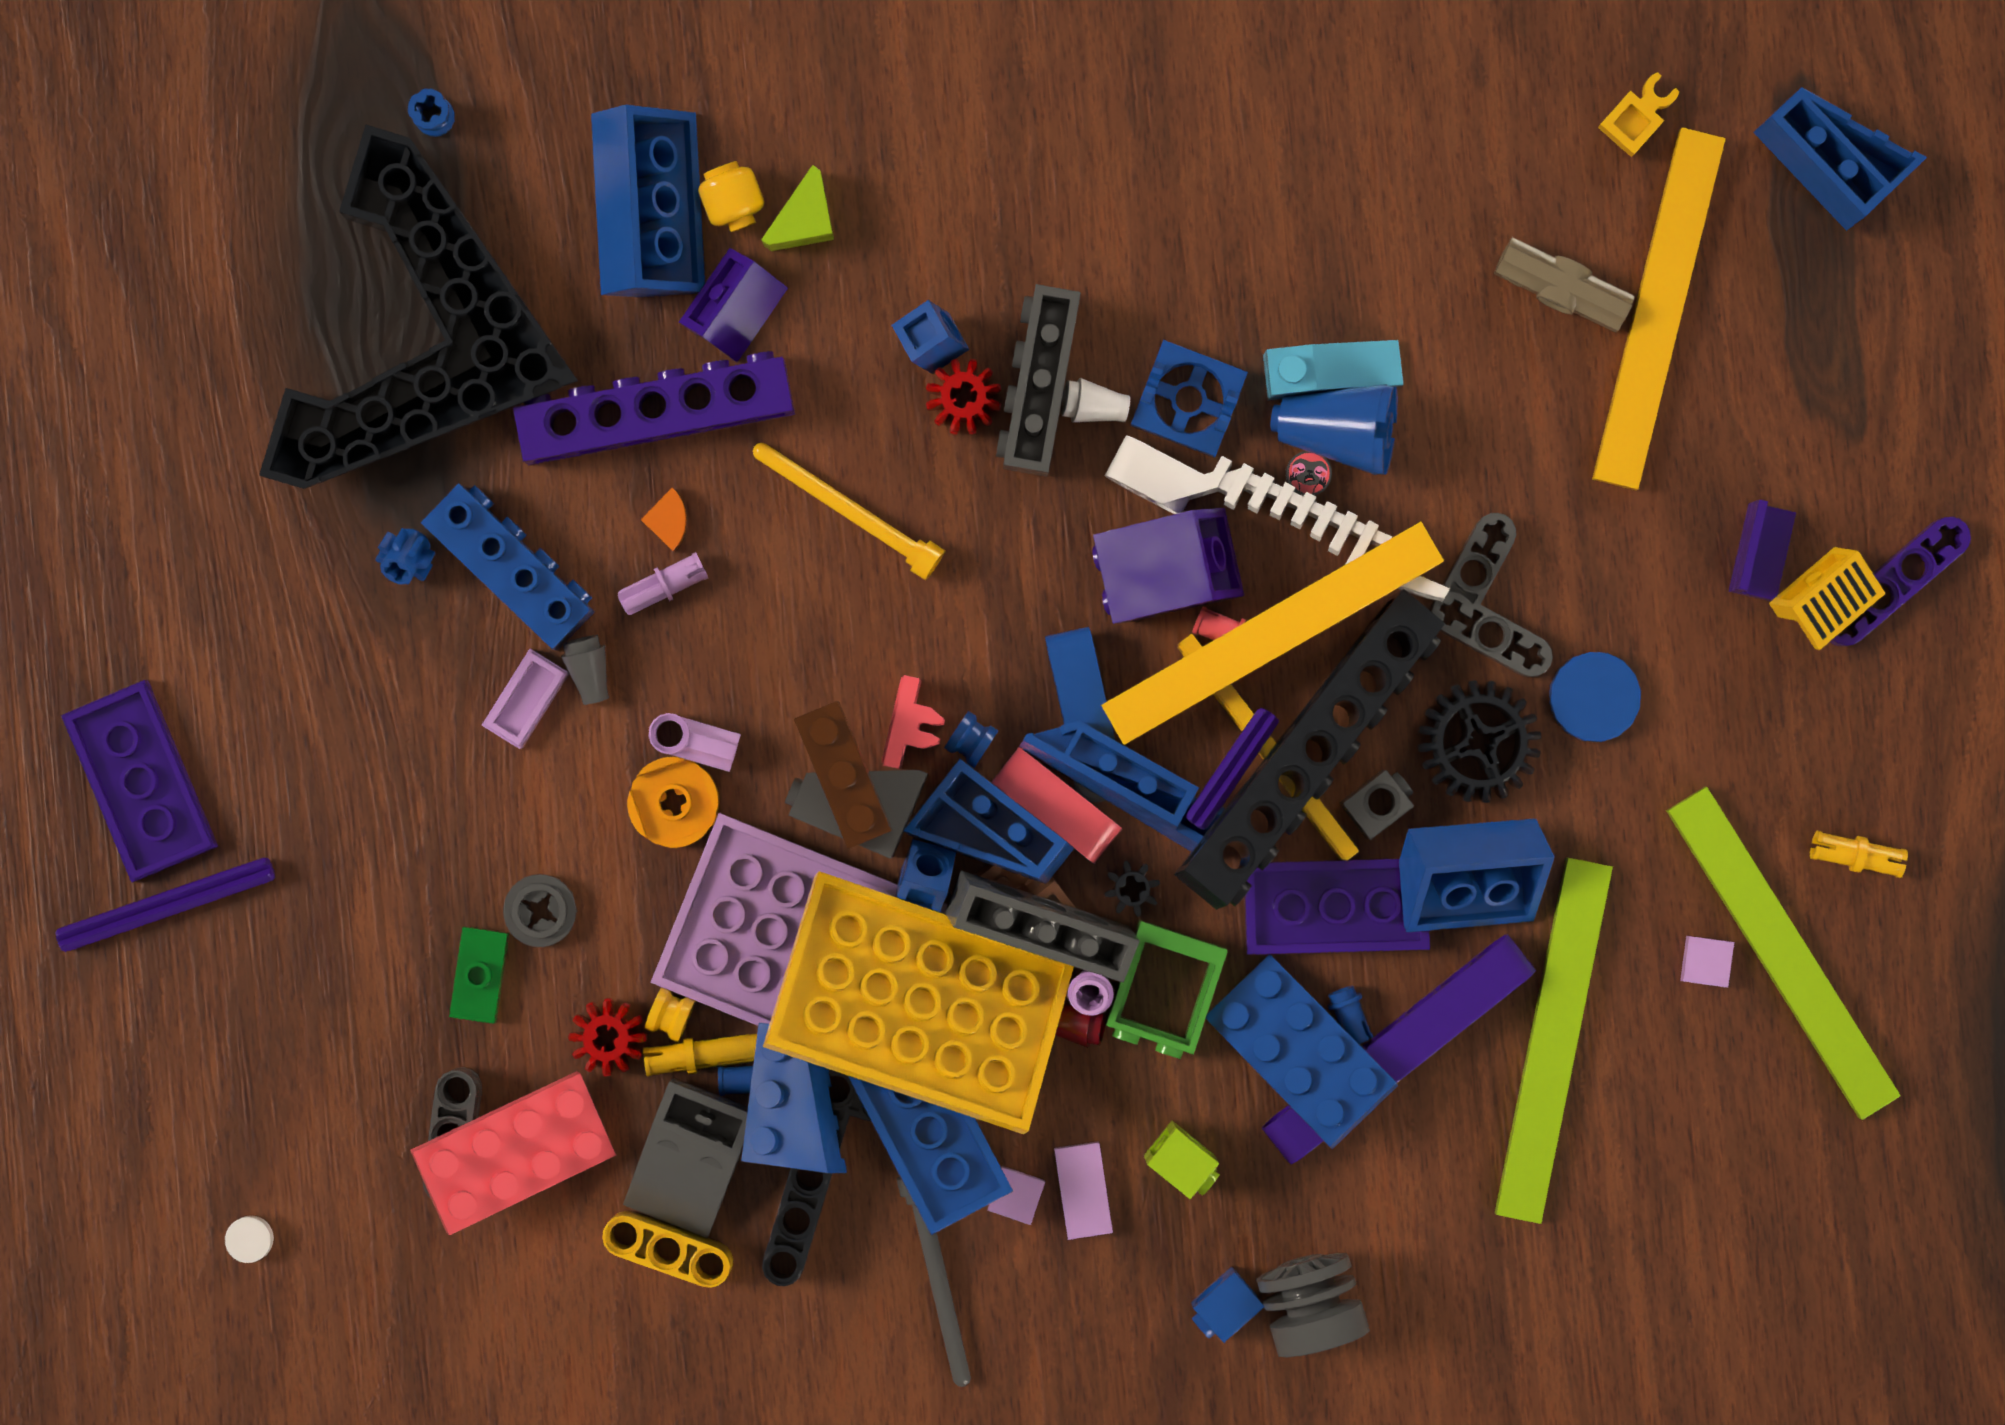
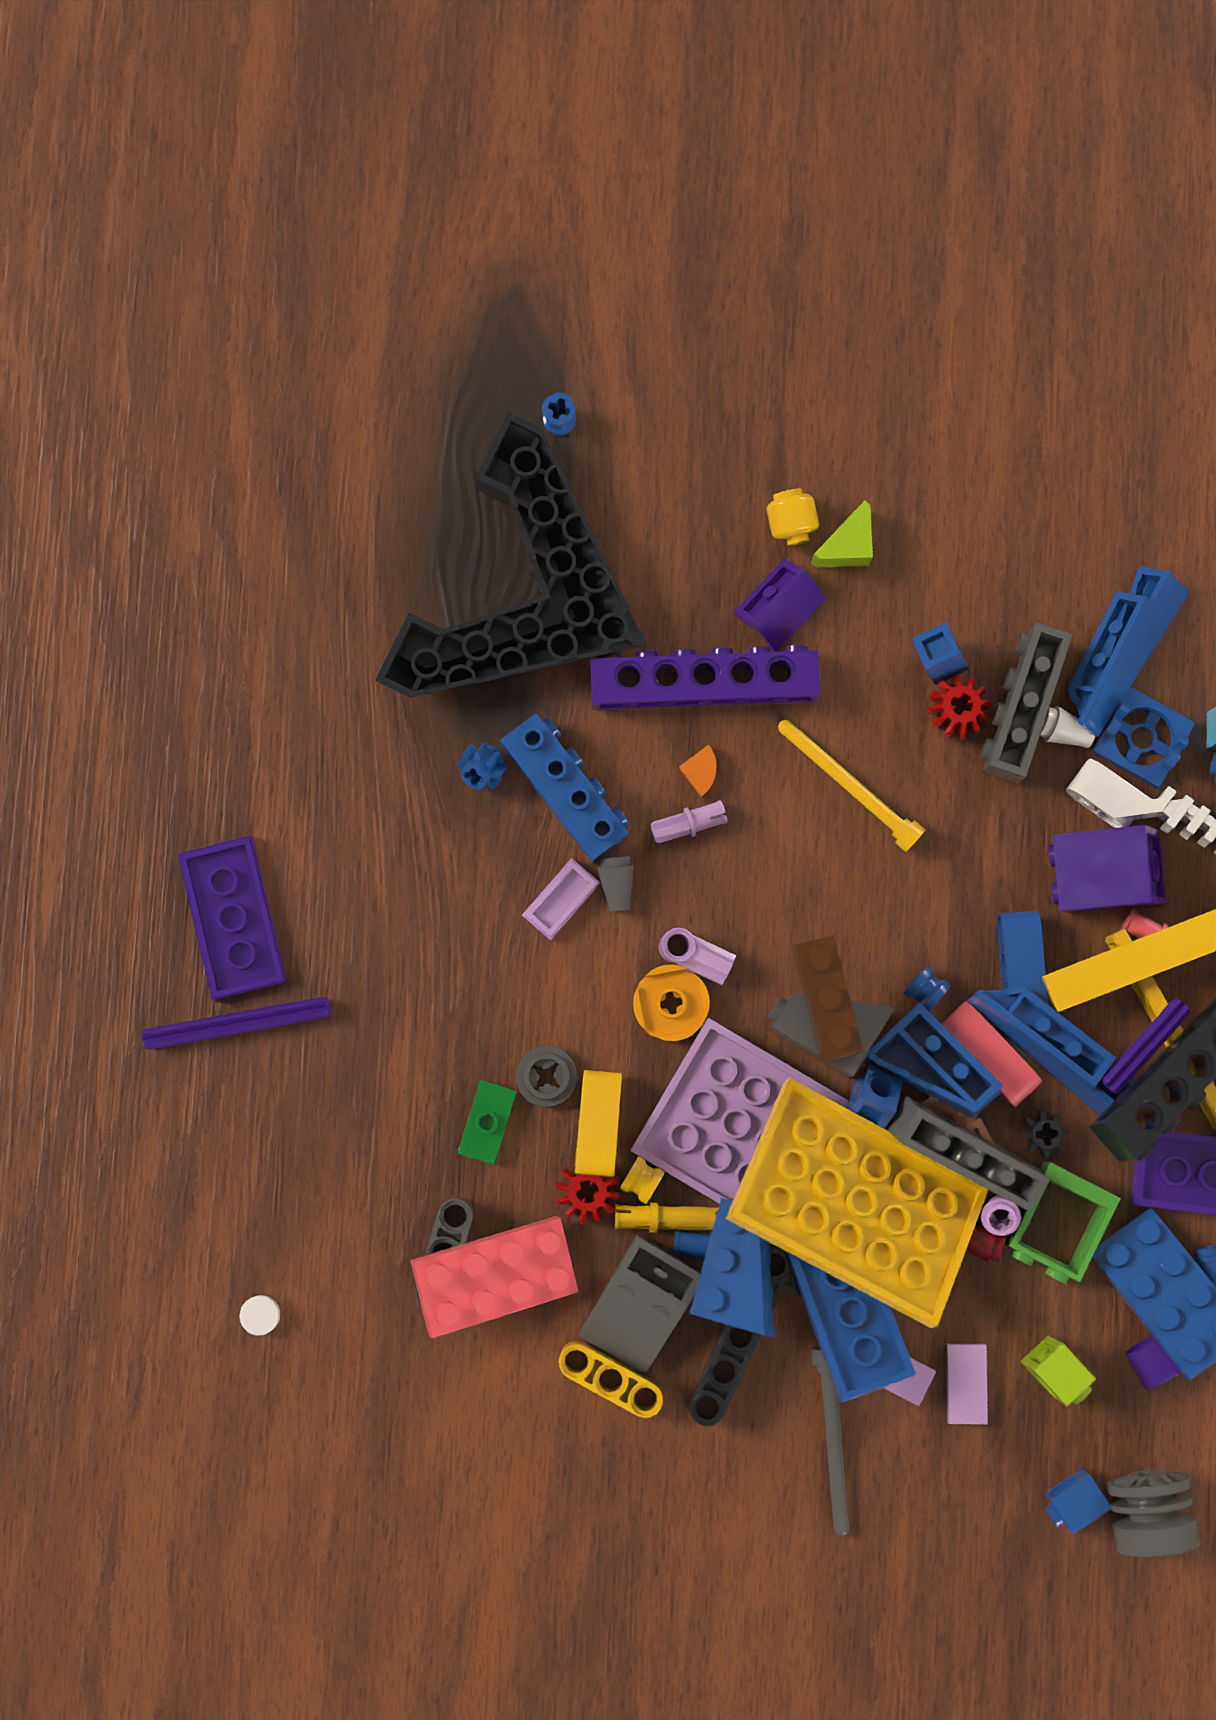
camera: 10 degrees right, 5 degrees down
(606, 956) = (598, 1123): none -> yellow beam
(647, 202) = (723, 511): blue slope -> none
(906, 724) = (880, 967): coral piece -> none
(1150, 291) = (1124, 644): none -> blue wedge

